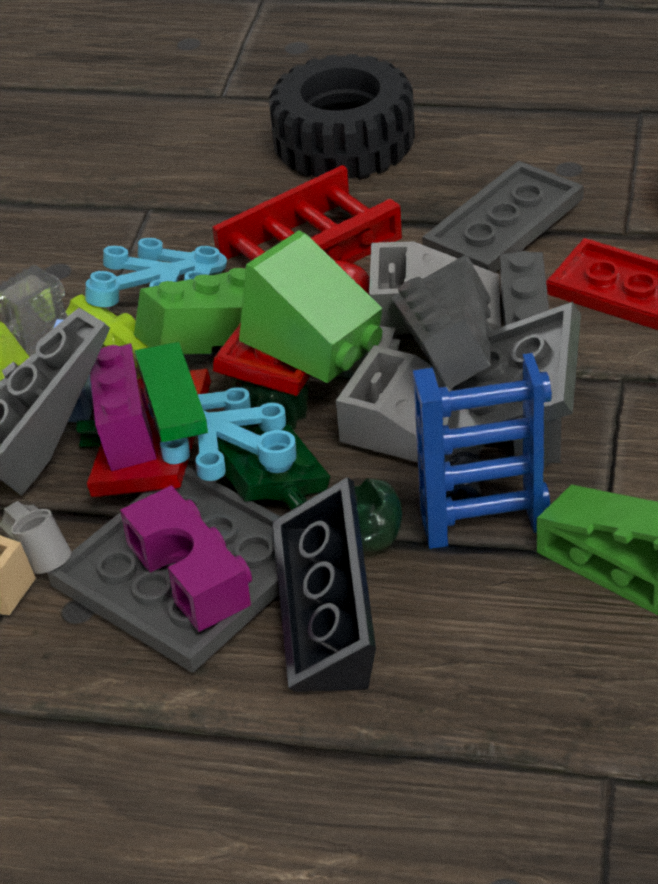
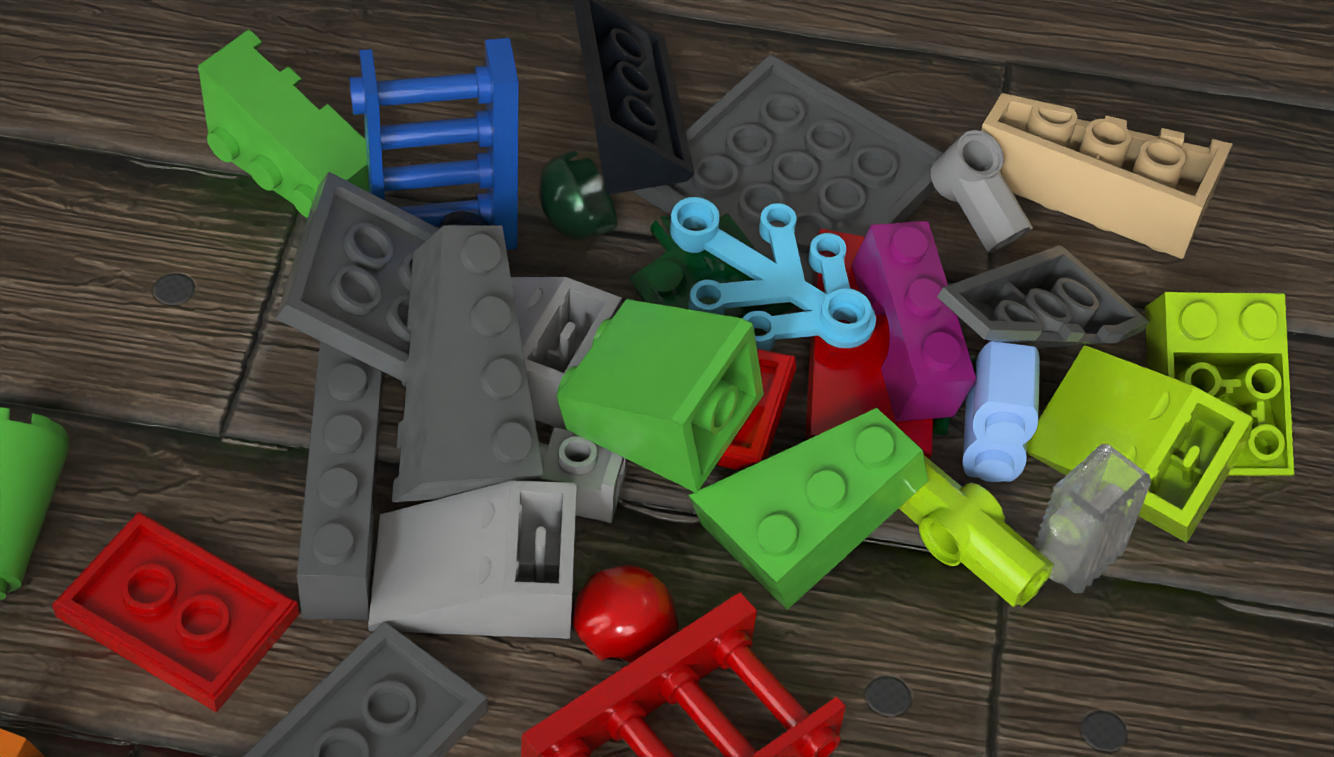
camera: 170 degrees right, 10 degrees up
(104, 286) = (916, 634): medium azure plant -> none
(171, 392) = (844, 291): green tile -> none
(206, 577) = (813, 157): magenta arch -> none

